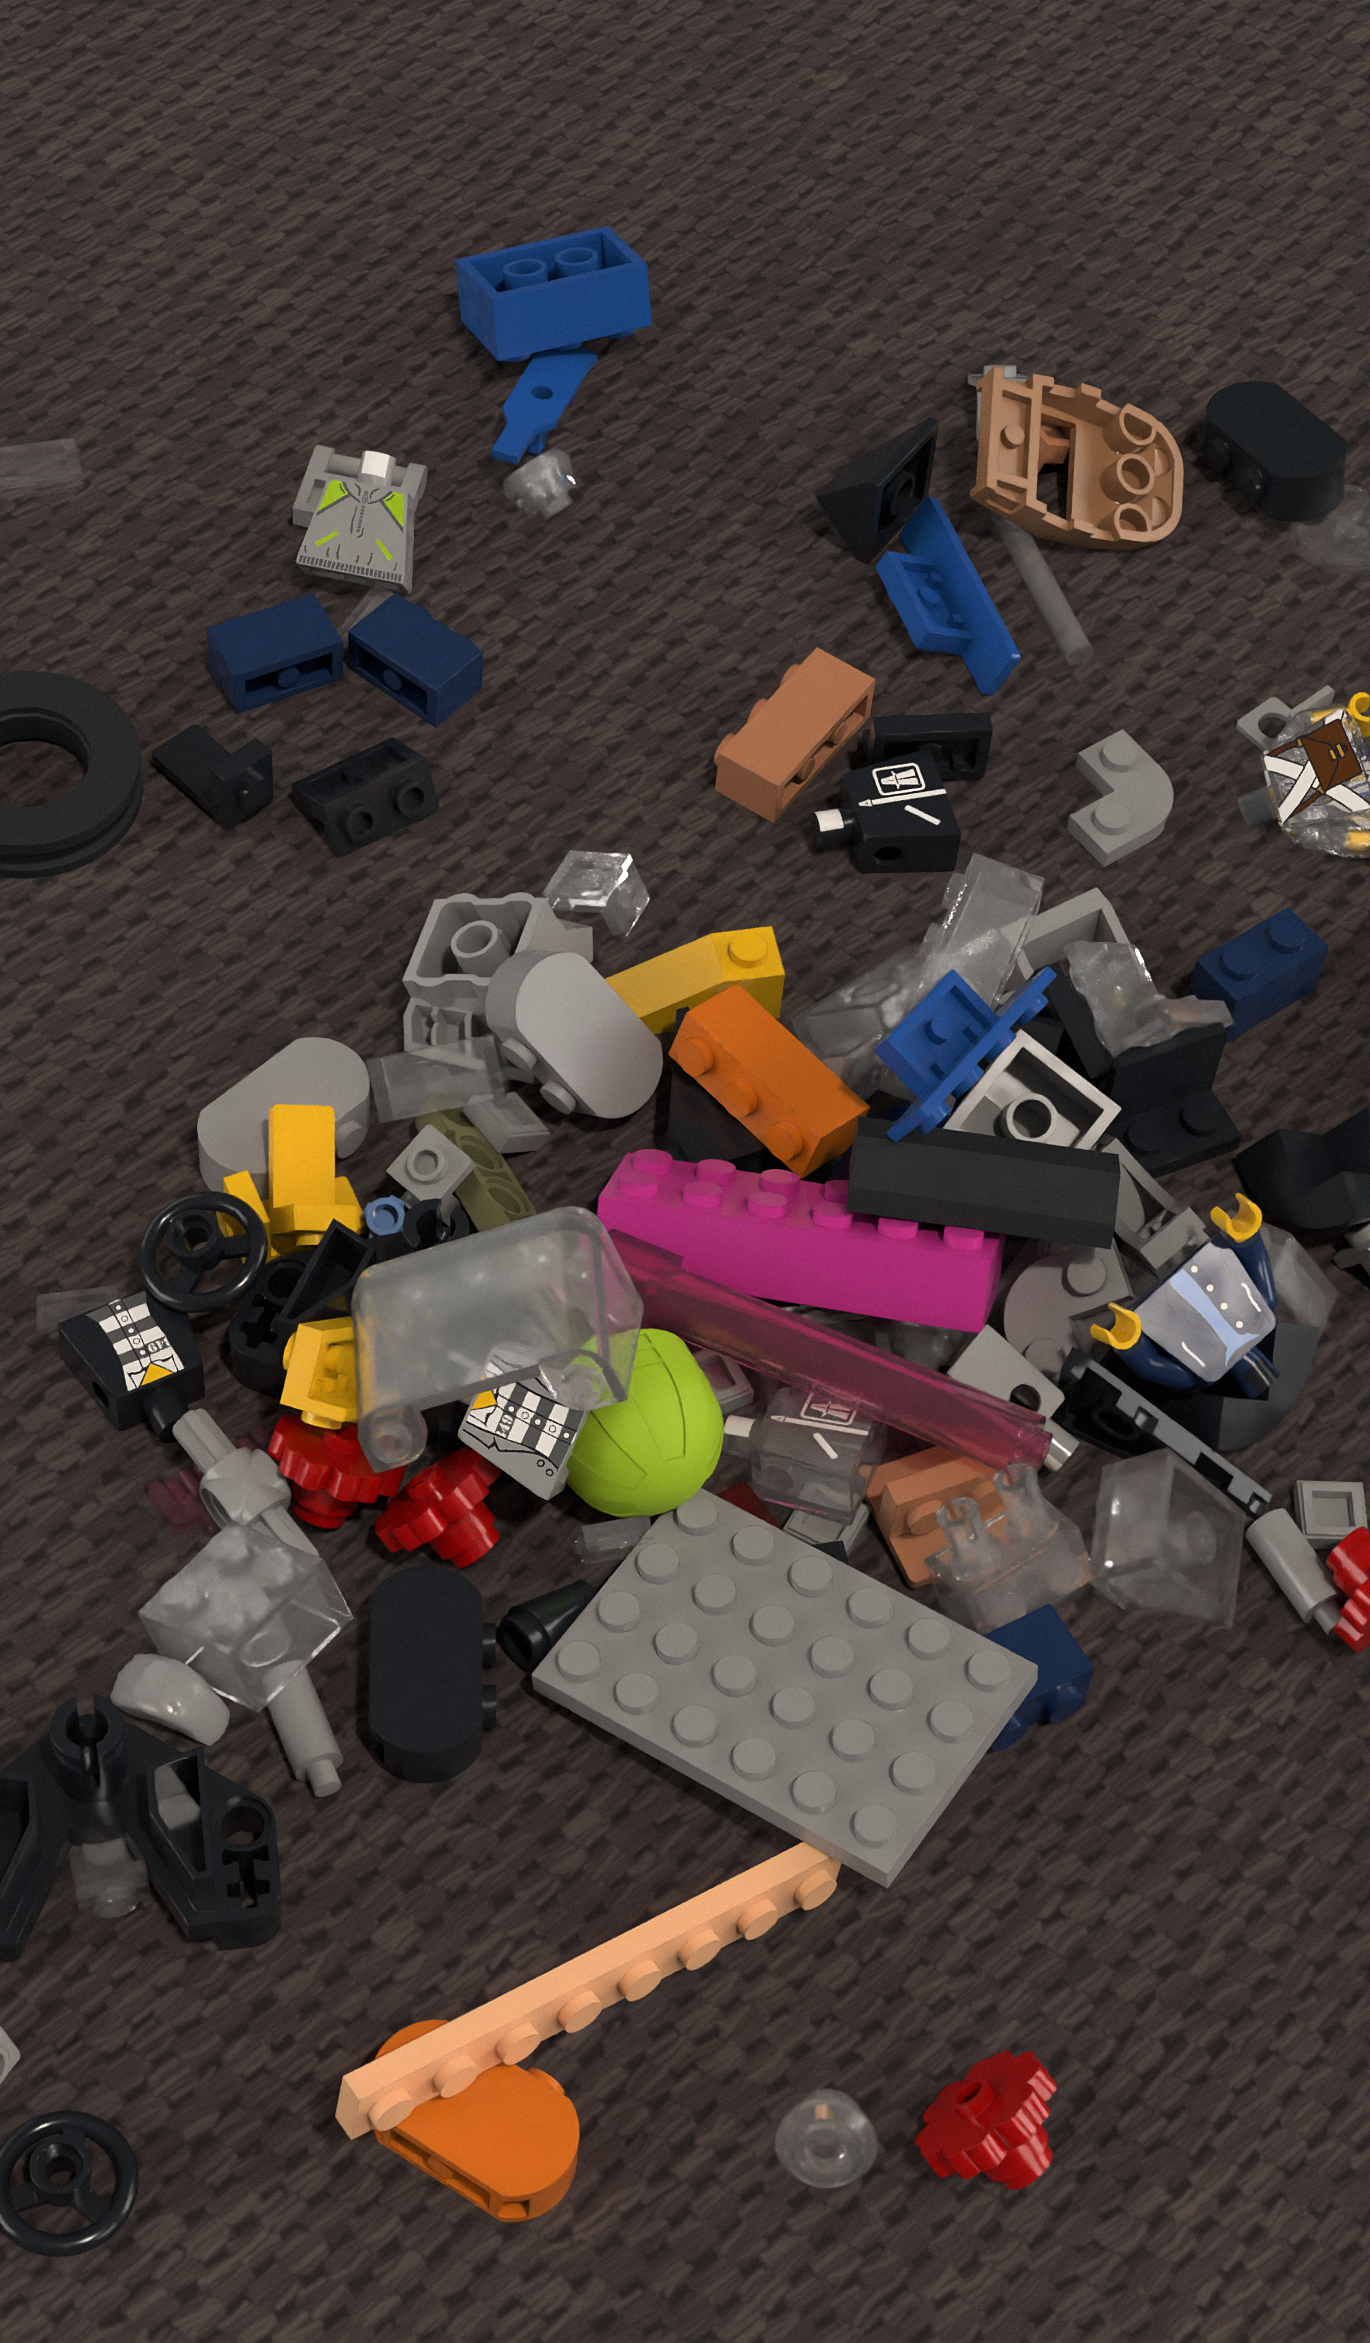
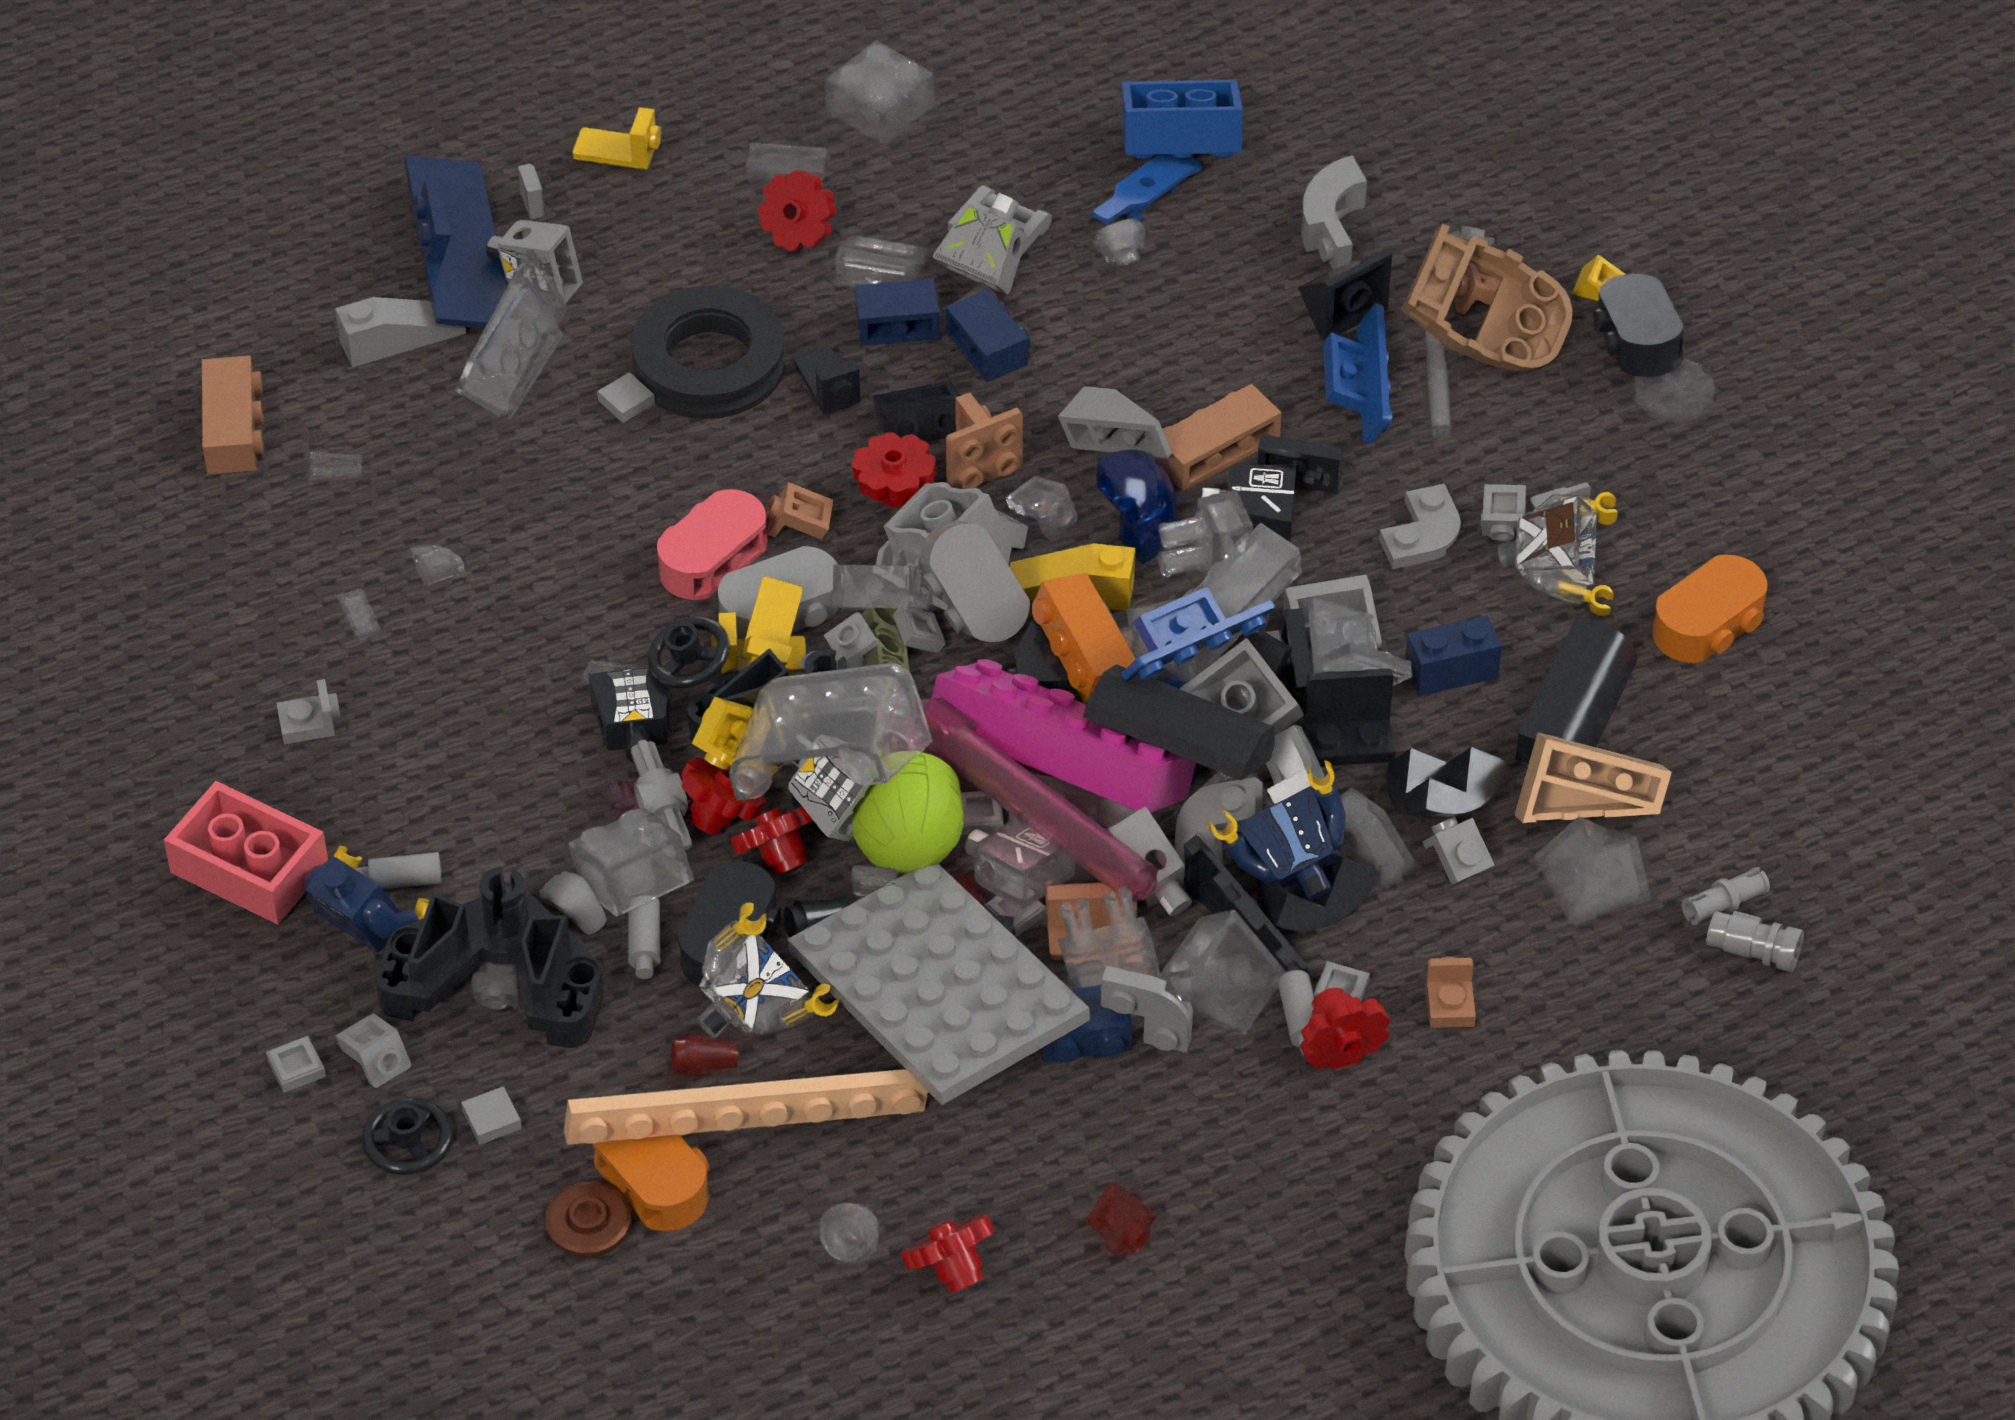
camera: 25 degrees right, 5 degrees down
(53, 544) = (797, 210): none -> red plant
(118, 343) = (879, 93): none -> clear brick
(151, 1067) = (710, 542): none -> coral brick
(184, 2105) = (491, 1115): none -> light grey tile
(215, 588) = (877, 261): none -> clear tile
(257, 983) = (799, 510): none -> nougat bracket
(377, 888) = (893, 468): none -> red plant
(413, 2259) = (588, 1219): none -> copper wheel
(471, 1902) = (700, 1055): none -> clear red cone
(486, 820) = (982, 444): none -> nougat bracket
(519, 1768) = (753, 983): none -> torso
(658, 748) = (1111, 423): none -> light grey slope
(740, 843) = (1142, 495): none -> clear blue brick
(793, 402) = (1327, 199): none -> light grey arch
(872, 892) = (1212, 530): none -> clear brick
(1126, 1641) = (1165, 1017): none -> light grey plate
(1180, 401) = (1594, 276): none -> yellow slope
(1209, 1989) = (1121, 1220): none -> clear red bracket
(1220, 751) = (1502, 510): none -> light grey bracket

